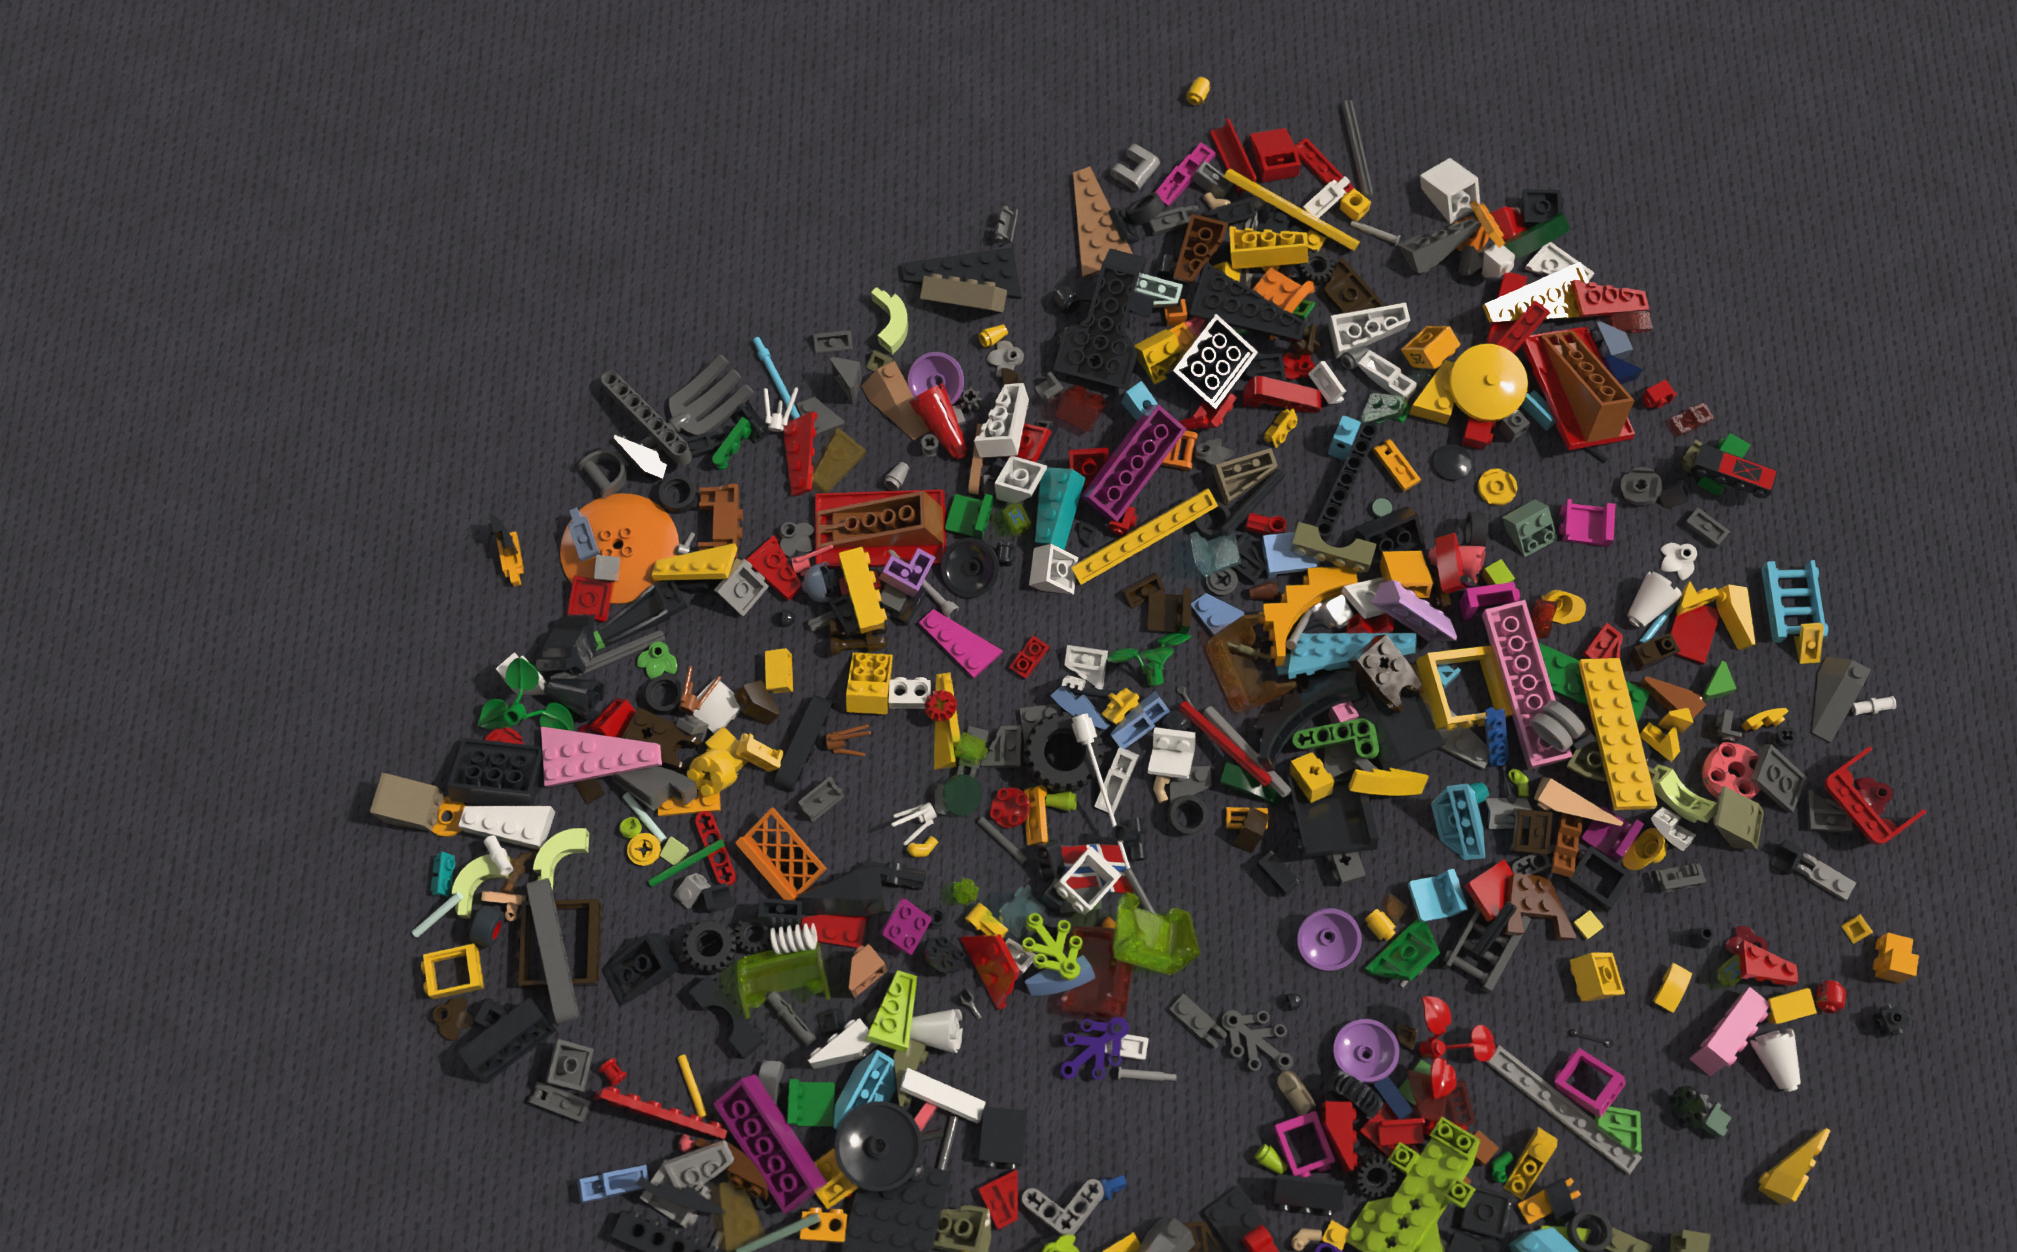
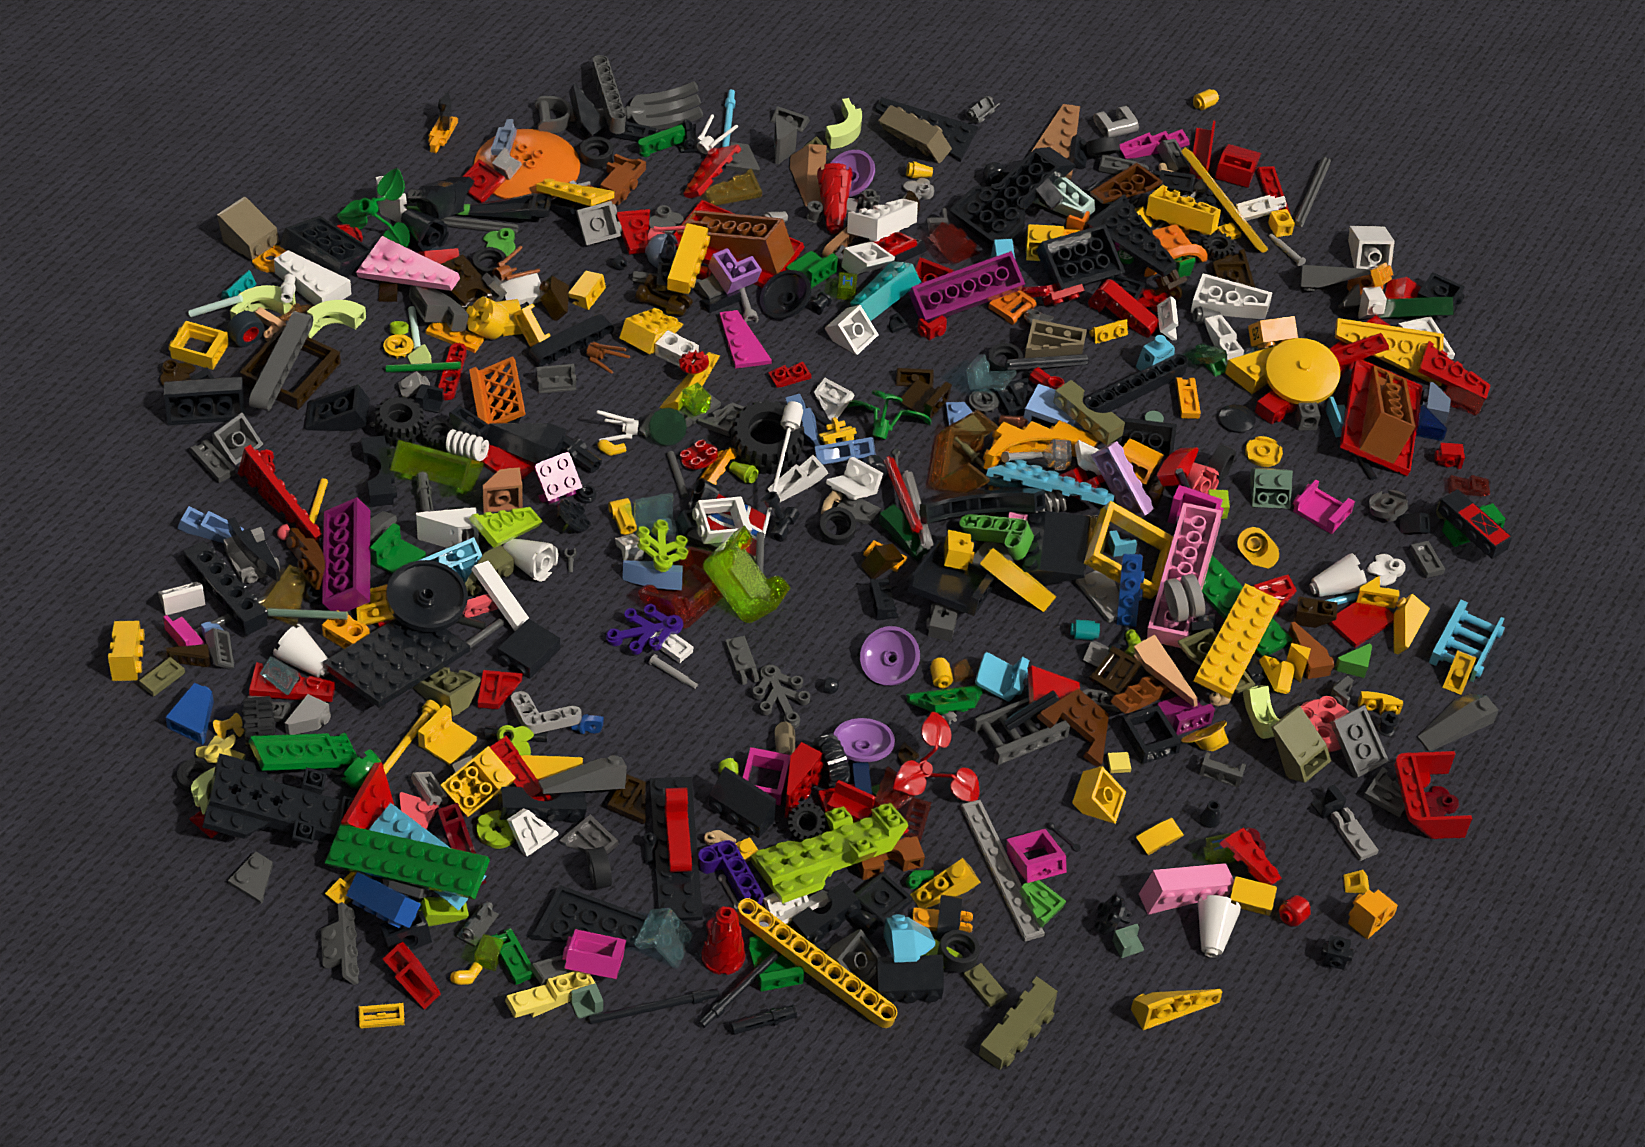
camera: 25 degrees right, 20 degrees down
(699, 1166) = (285, 538): light grey wing -> none
(965, 891) = (622, 487): clear neon green gear -> none
(993, 964) = (607, 540): red wing -> none
(1074, 681) = (812, 400): white tile -> none
(1144, 536) = (940, 339): yellow plate -> none
(1390, 676) = (1066, 497): brick -> none
(1459, 821) = (1060, 632): medium azure wedge -> none
(1542, 617) = (1233, 544): clear red slope -> none
(1668, 826) = (1239, 729): white slope -> none
(1873, 705) = (1486, 743): white pin -> none

